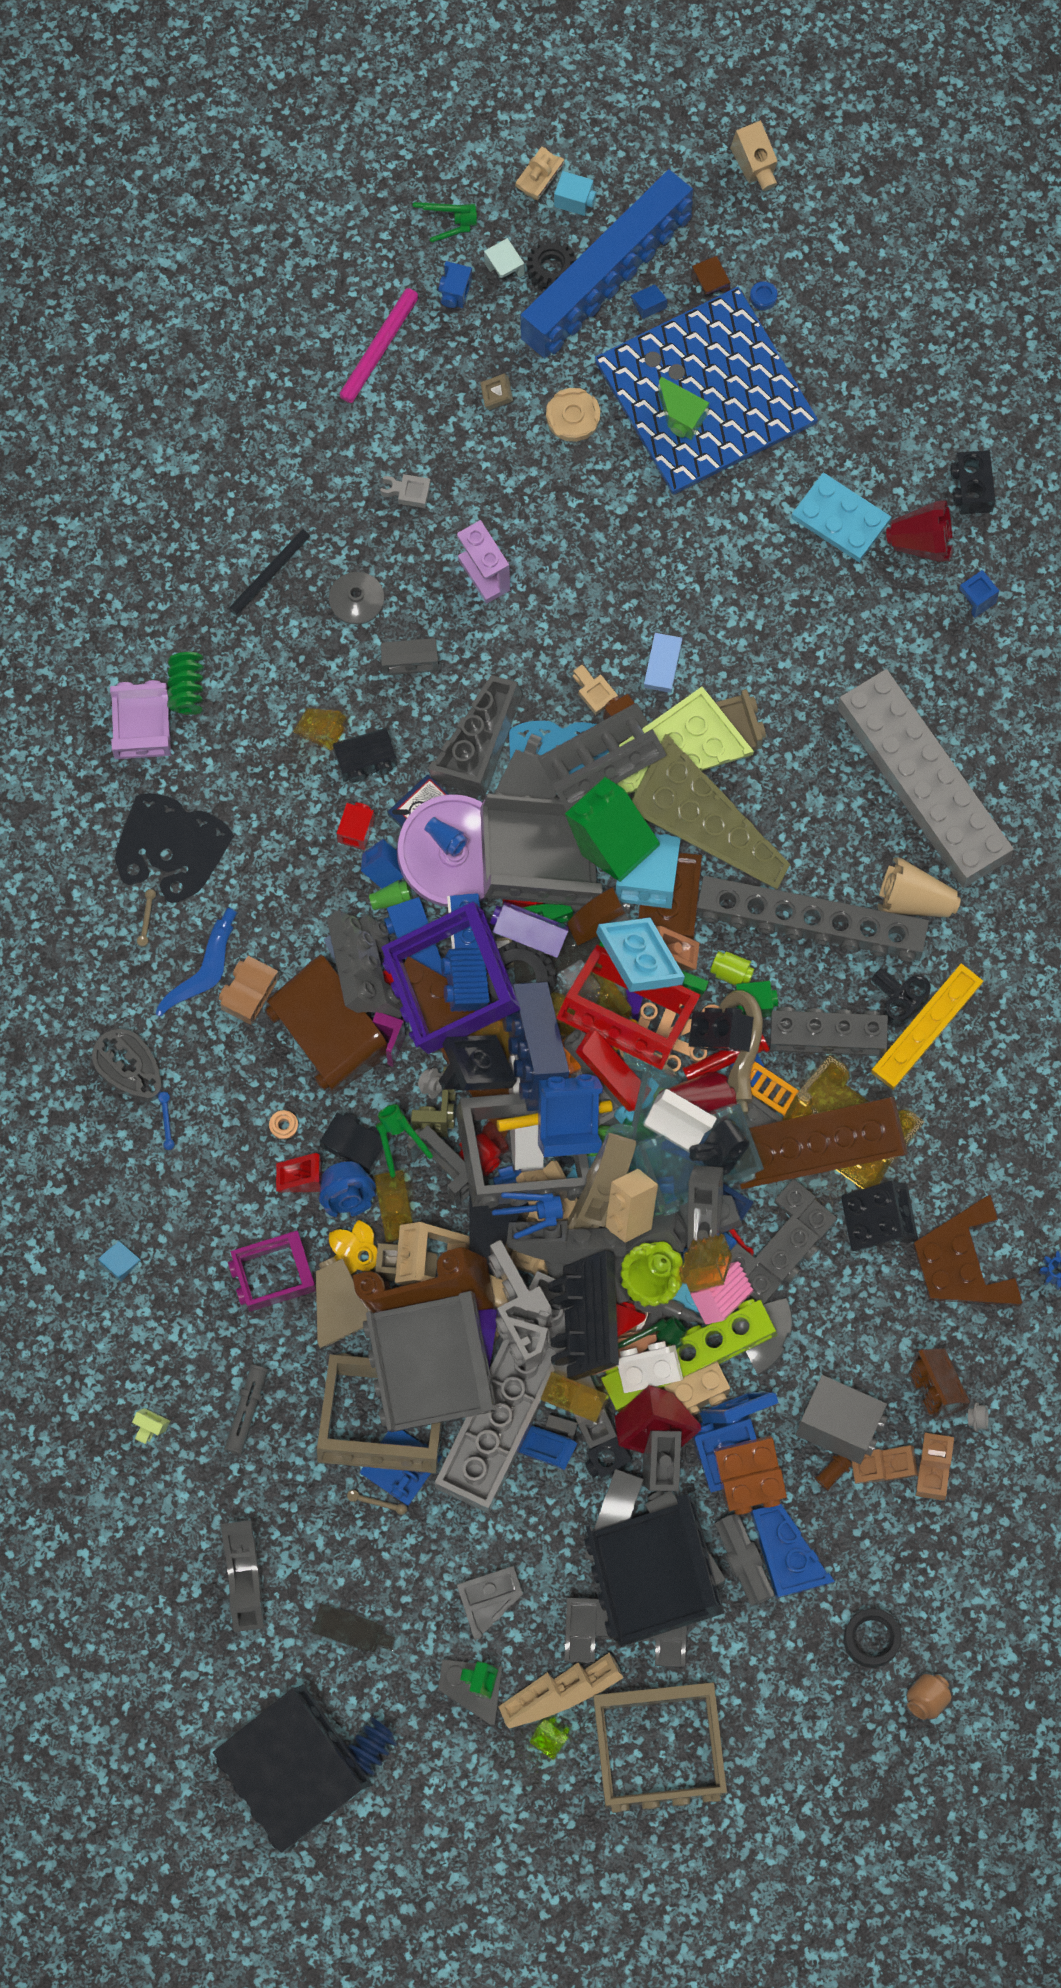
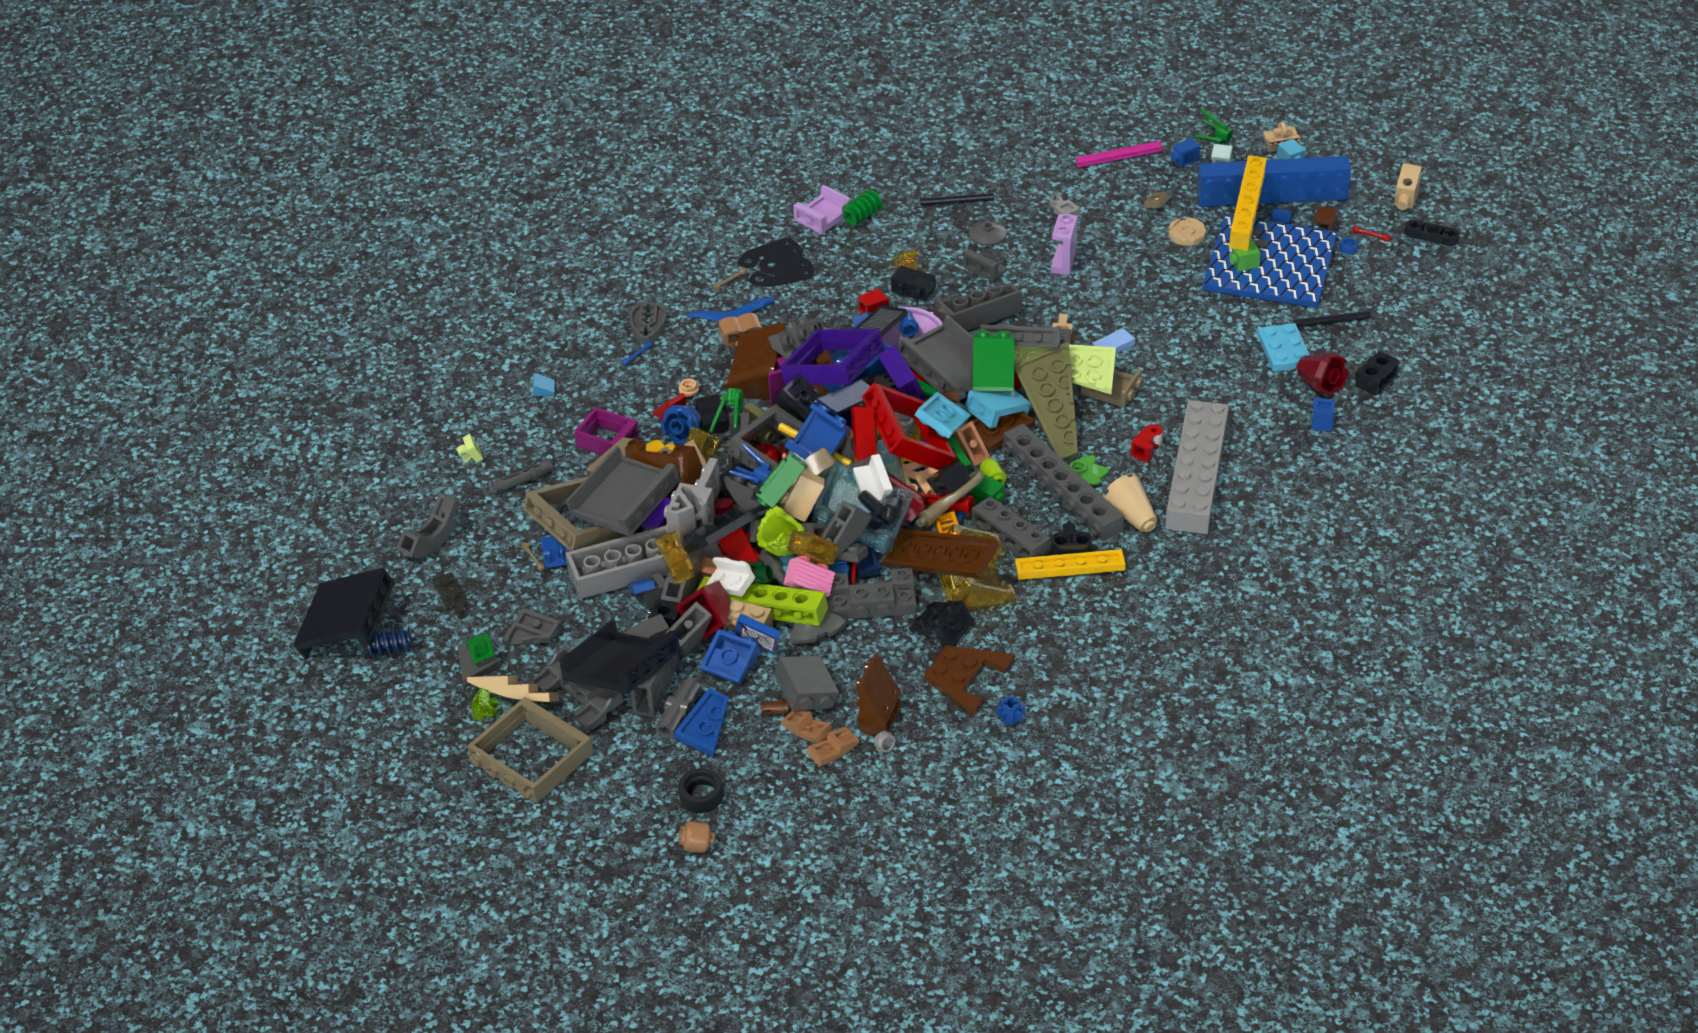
camera: 45 degrees right, 30 degrees down
(415, 873) = (883, 318): none -> black window
(533, 1275) = (722, 505): none -> dark red tile
(606, 1218) = (780, 480): none -> window
(641, 343) = (1247, 203): none -> yellow brick
(750, 1475) = (727, 670): dark orange plate -> none
(789, 249) = (1386, 238): none -> red hinge
(819, 874) = (1089, 470): none -> bright green plate
(827, 212) = (1420, 229): none -> black beam
(839, 786) = (1145, 442): none -> red leg
(849, 431) = (1332, 318): none -> black bar

